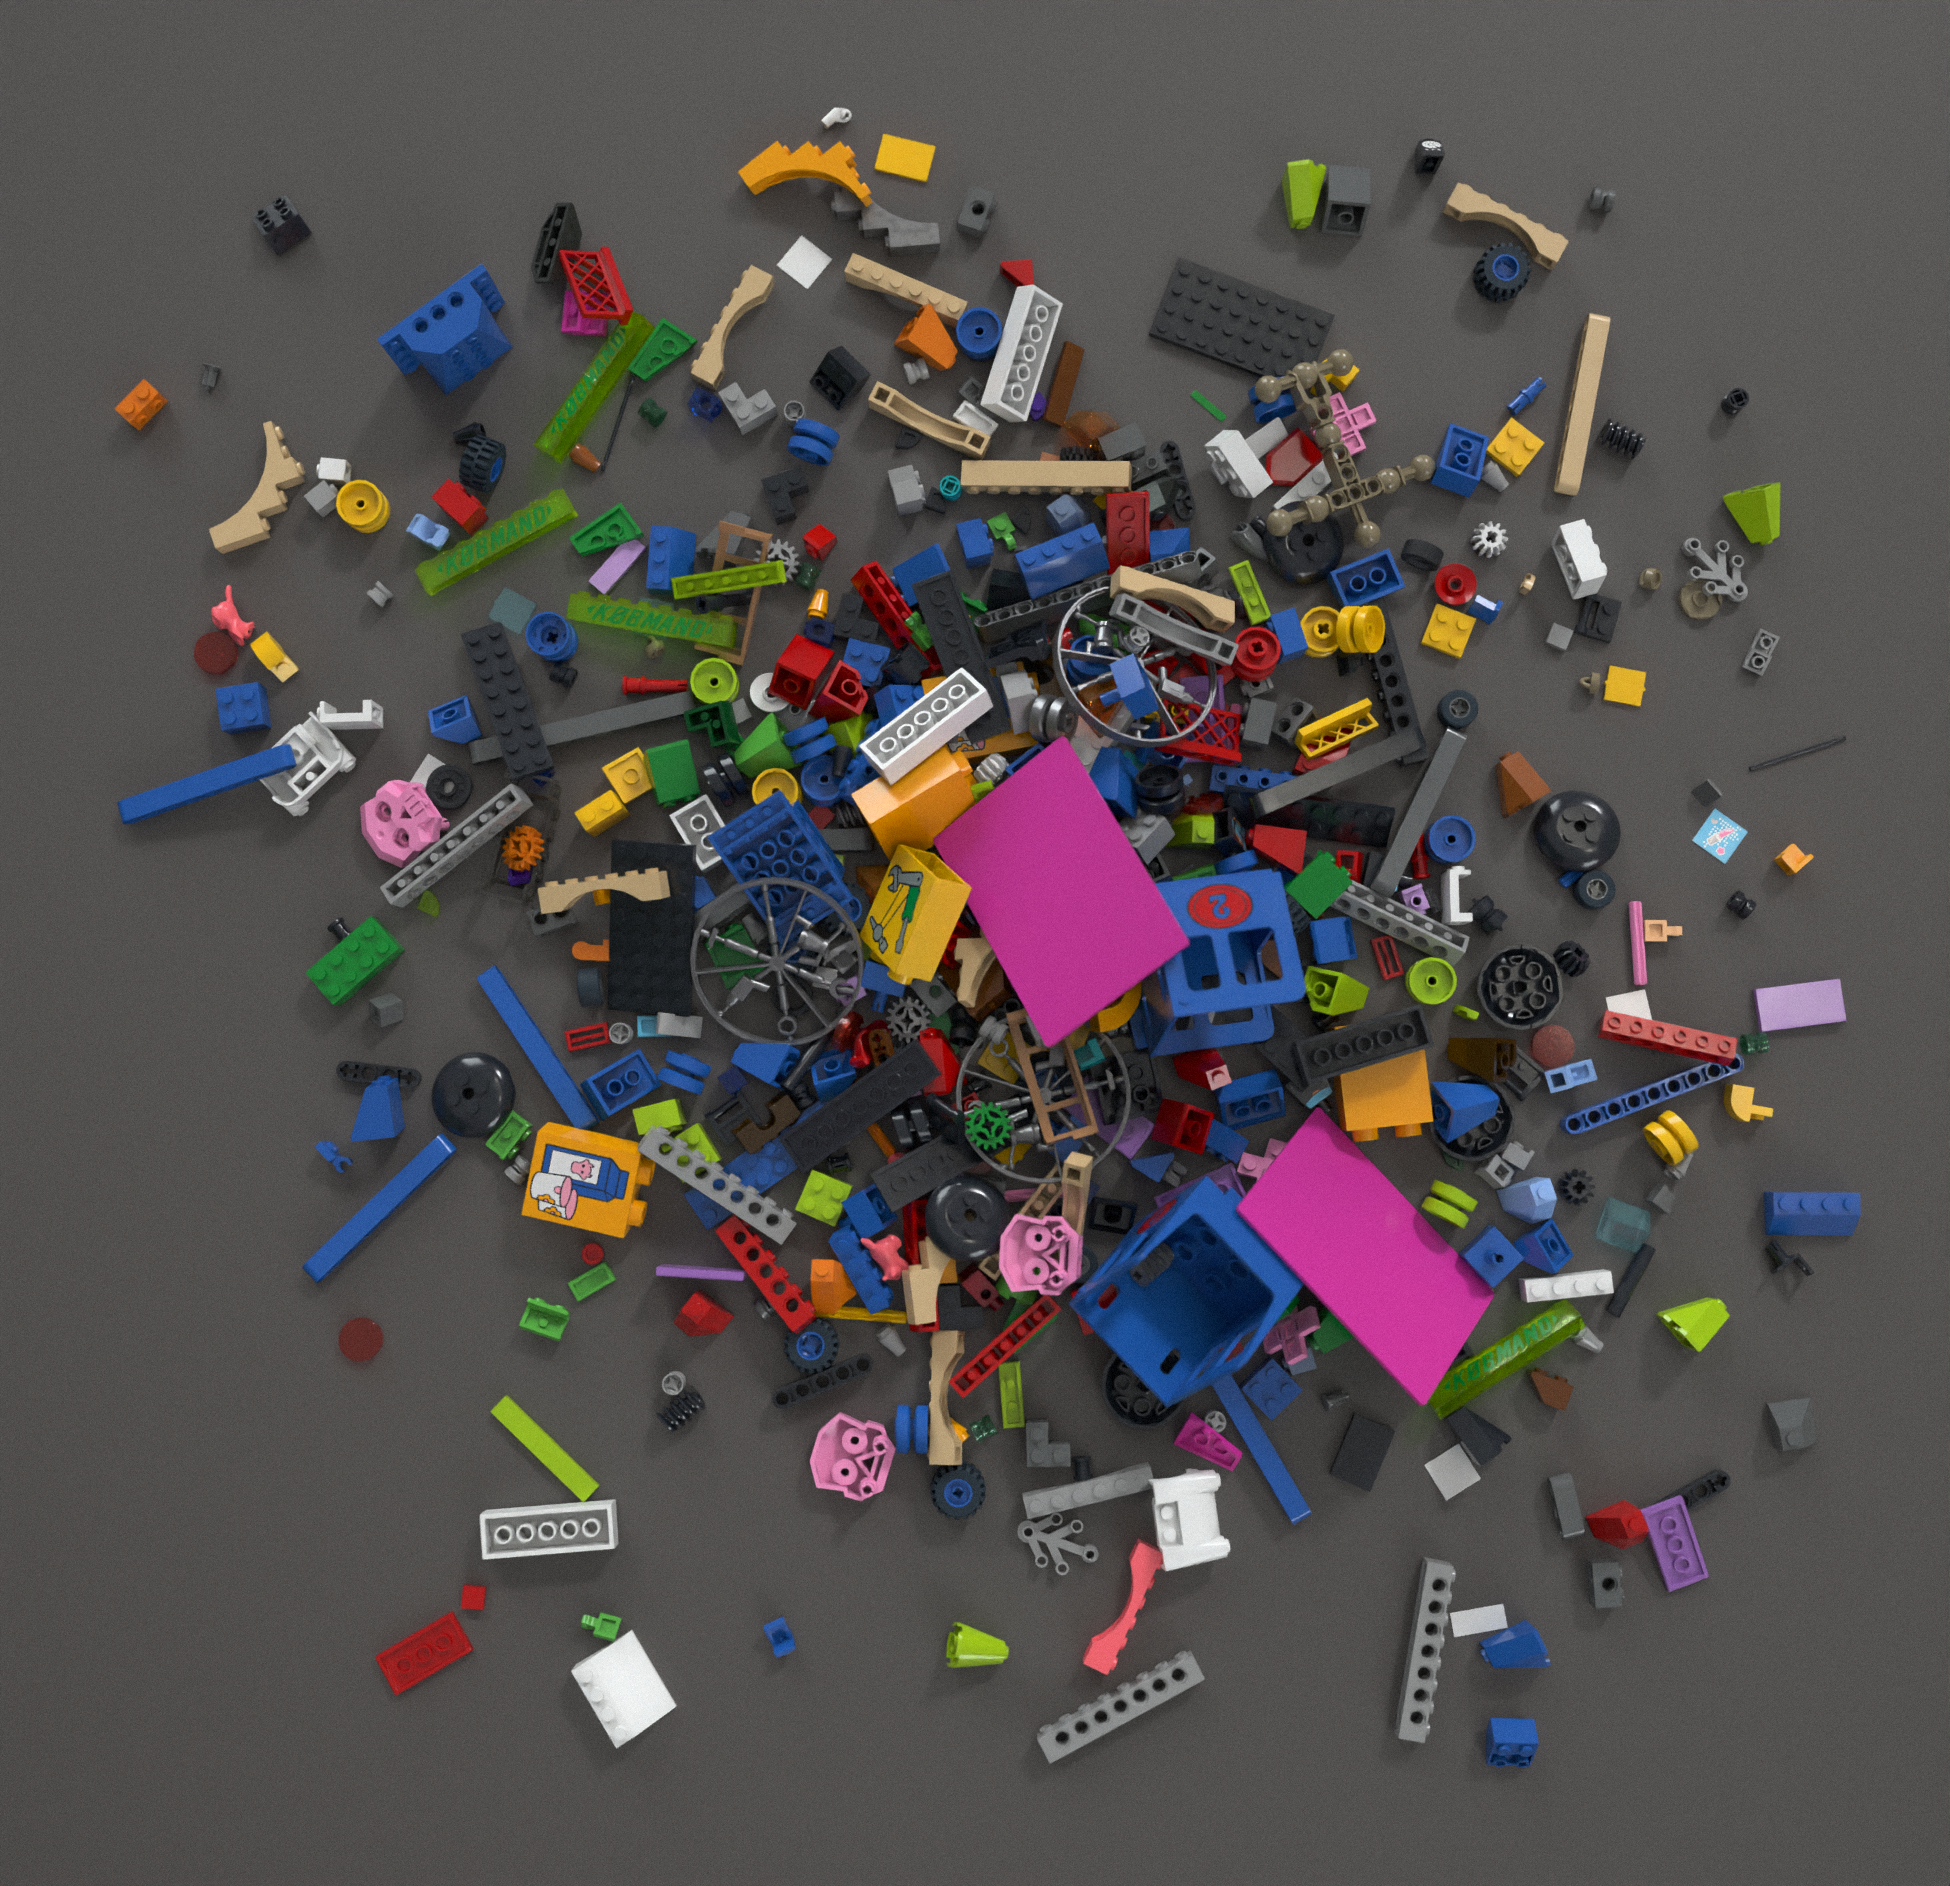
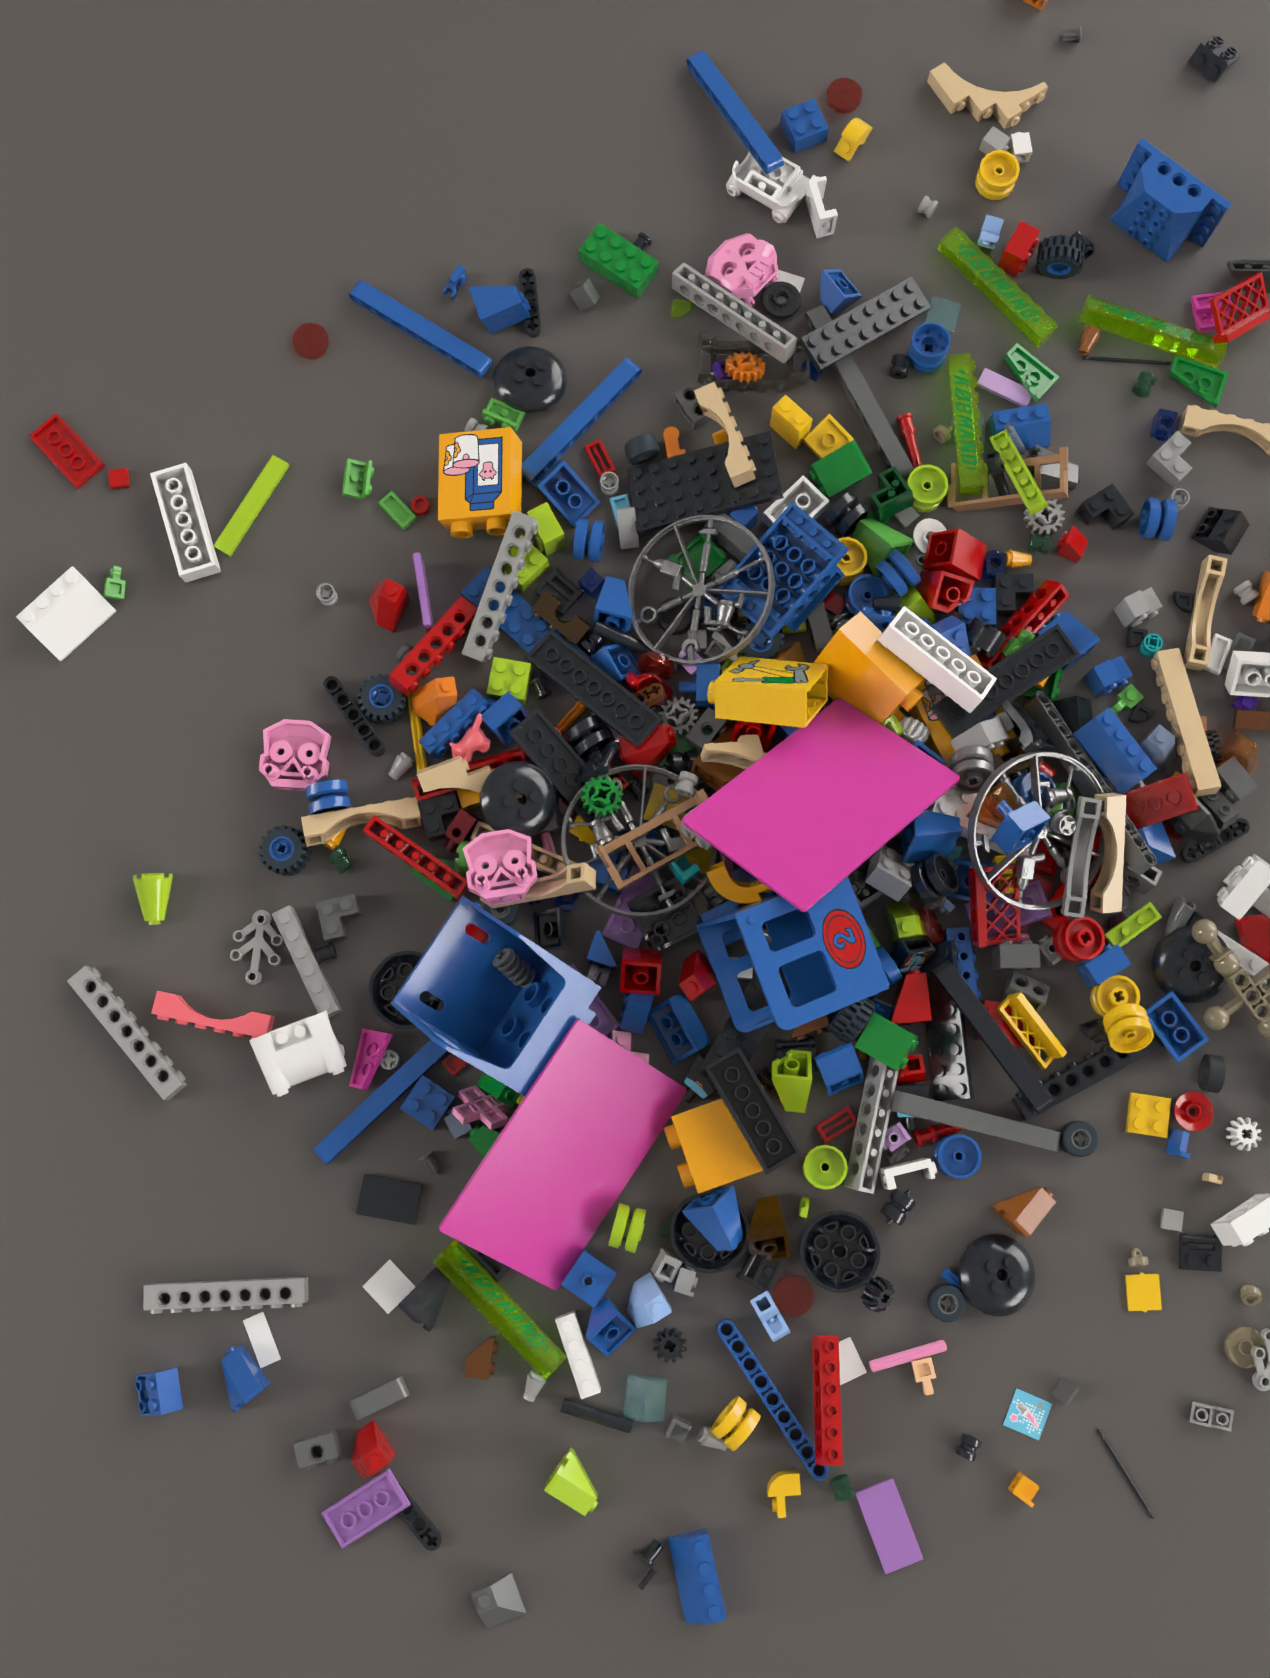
camera: 80 degrees right, 5 degrees down
(226, 617) = (875, 95): coral animal -> none
(682, 1410) = (305, 607): black piece -> none
(688, 569) = (1017, 441): none -> clear tile
(780, 1637) = (132, 731): blue bracket -> none
(1011, 1394) = (376, 878): lime tile -> none

